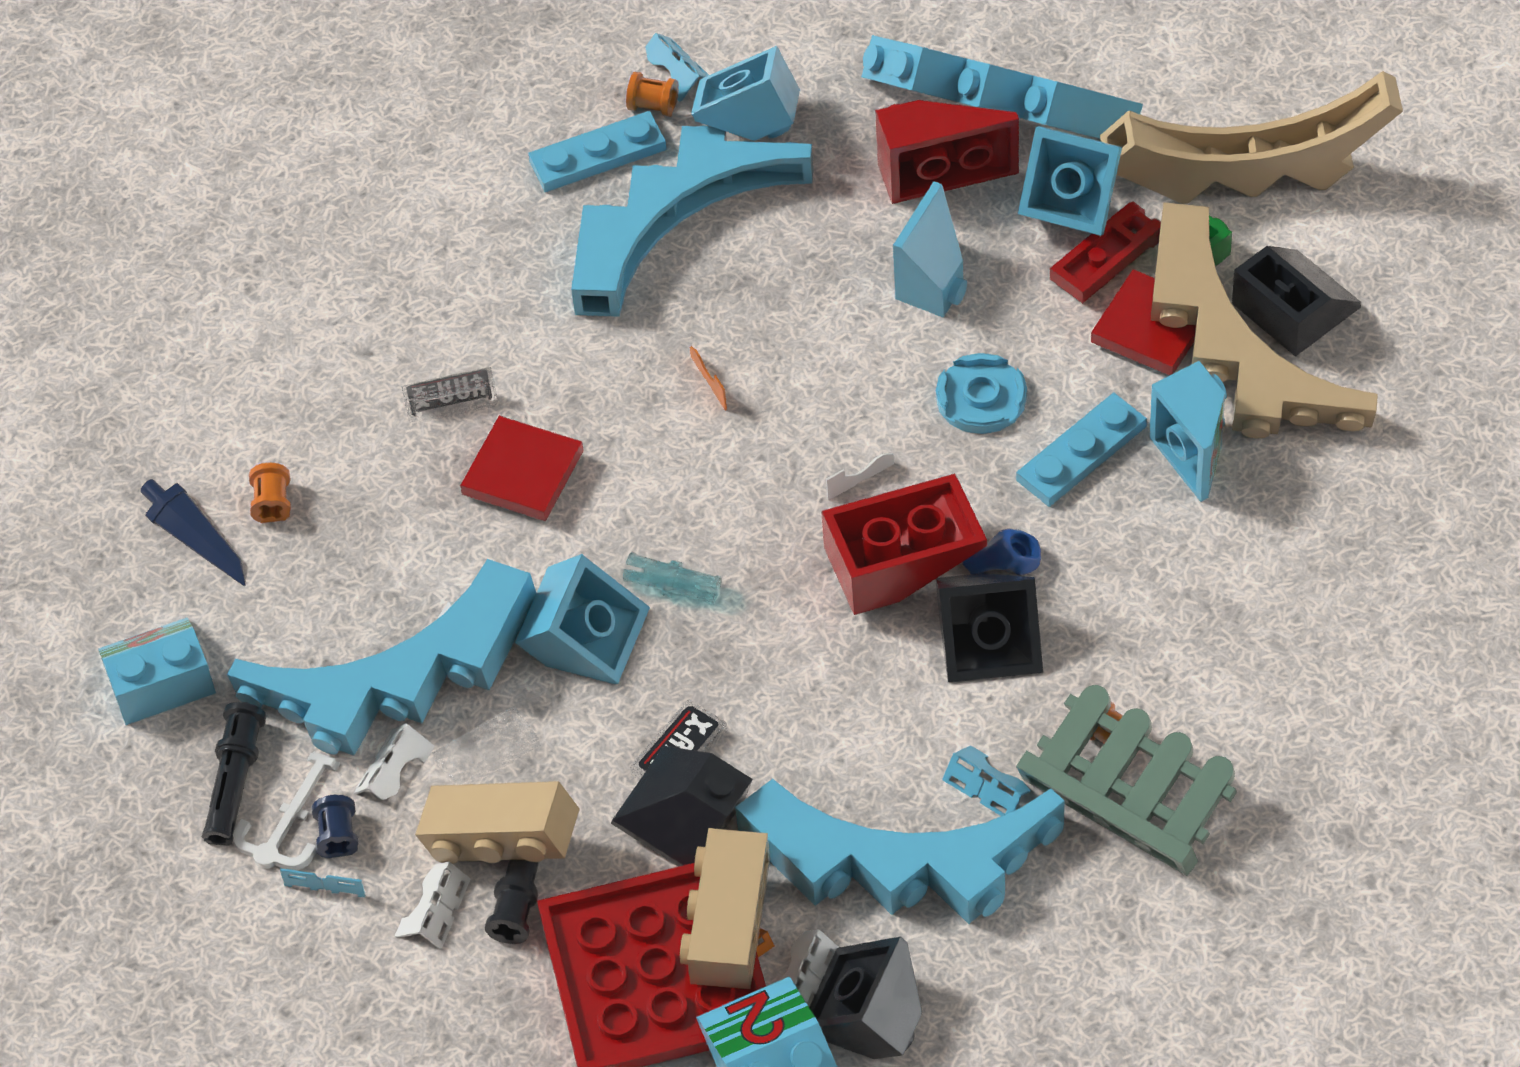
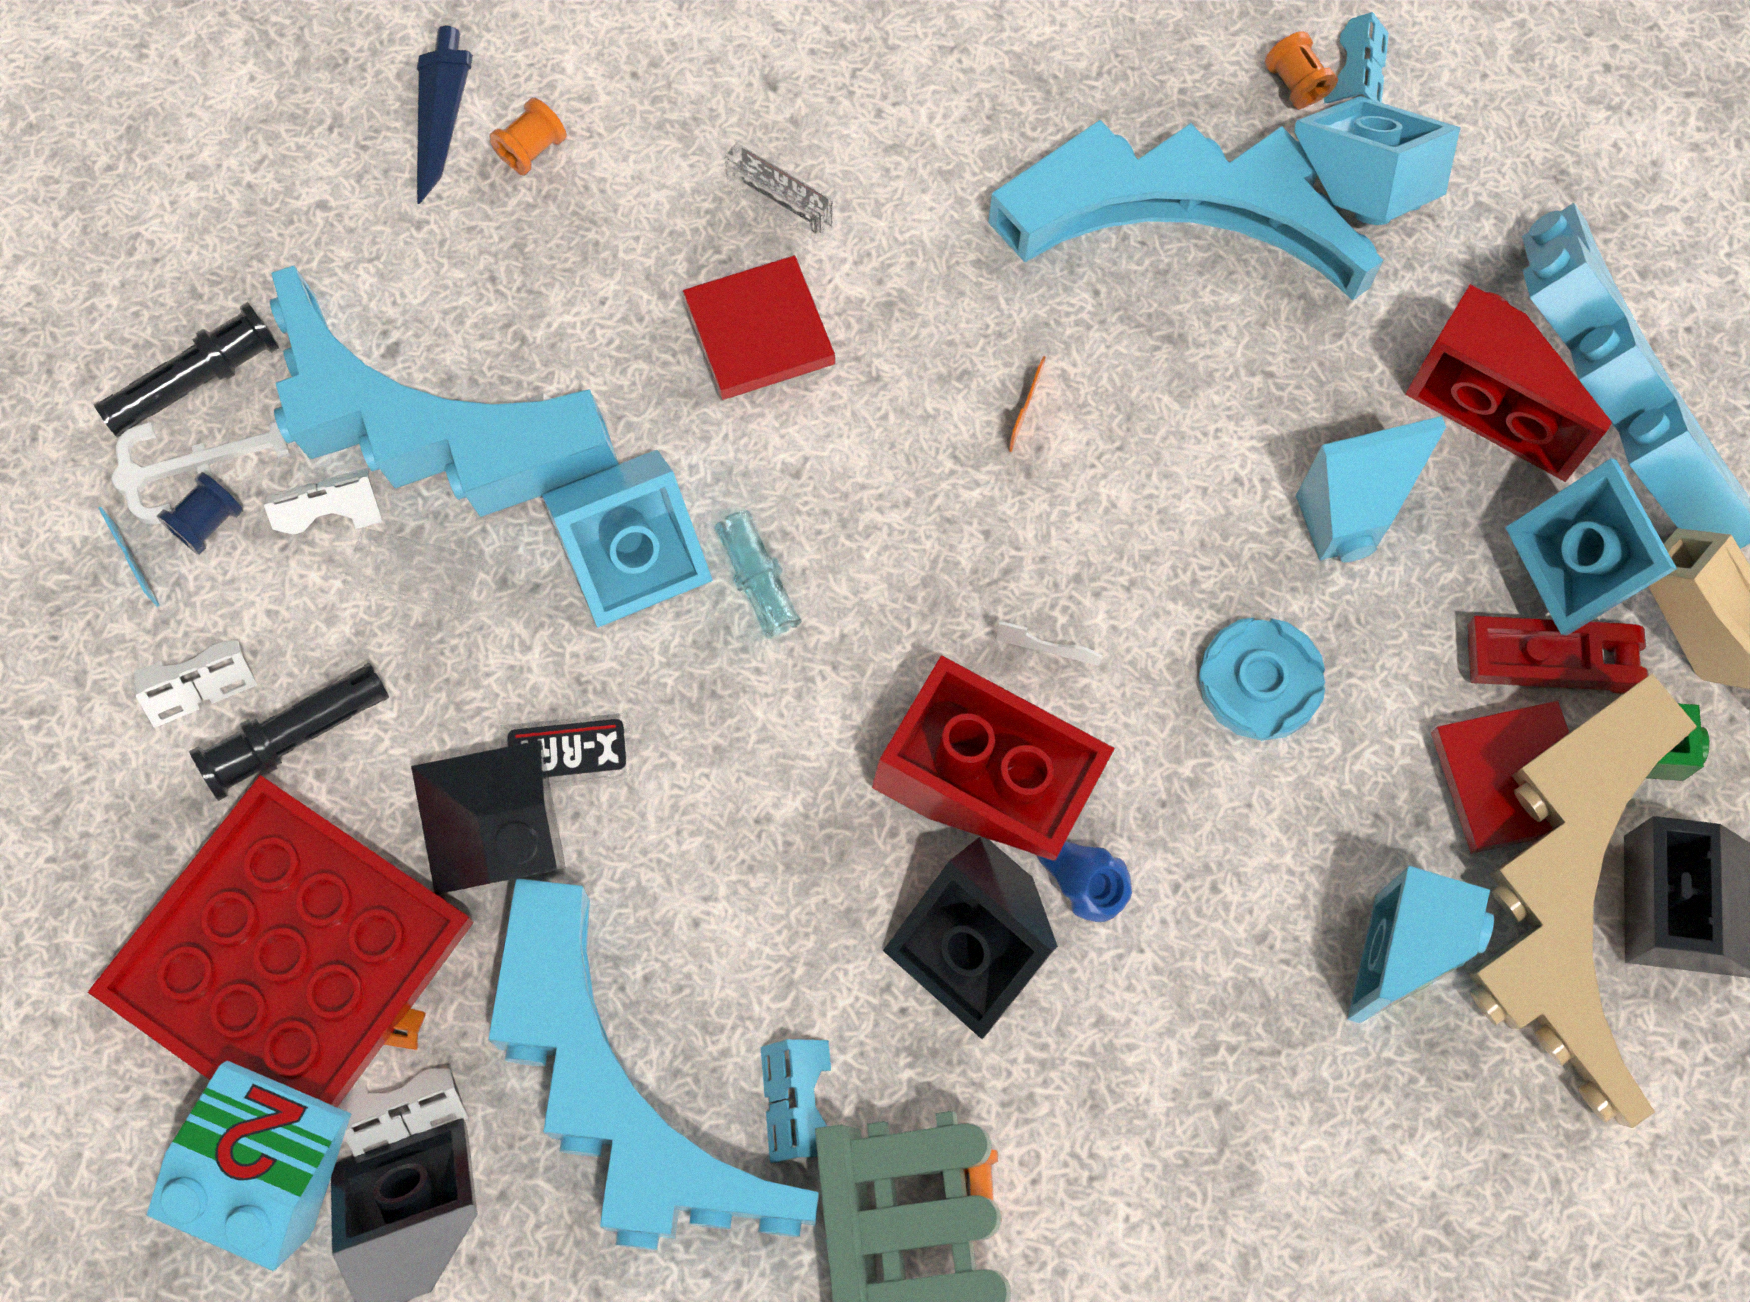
camera: 40 degrees right, 15 degrees up
(157, 671) = (244, 206): medium azure slope -> none
(497, 822) = (301, 665): tan brick -> none
(597, 151) = (1190, 81): medium azure plate -> none
(726, 908) = (378, 980): tan brick -> none
(1081, 449) = (1291, 839): medium azure plate -> none

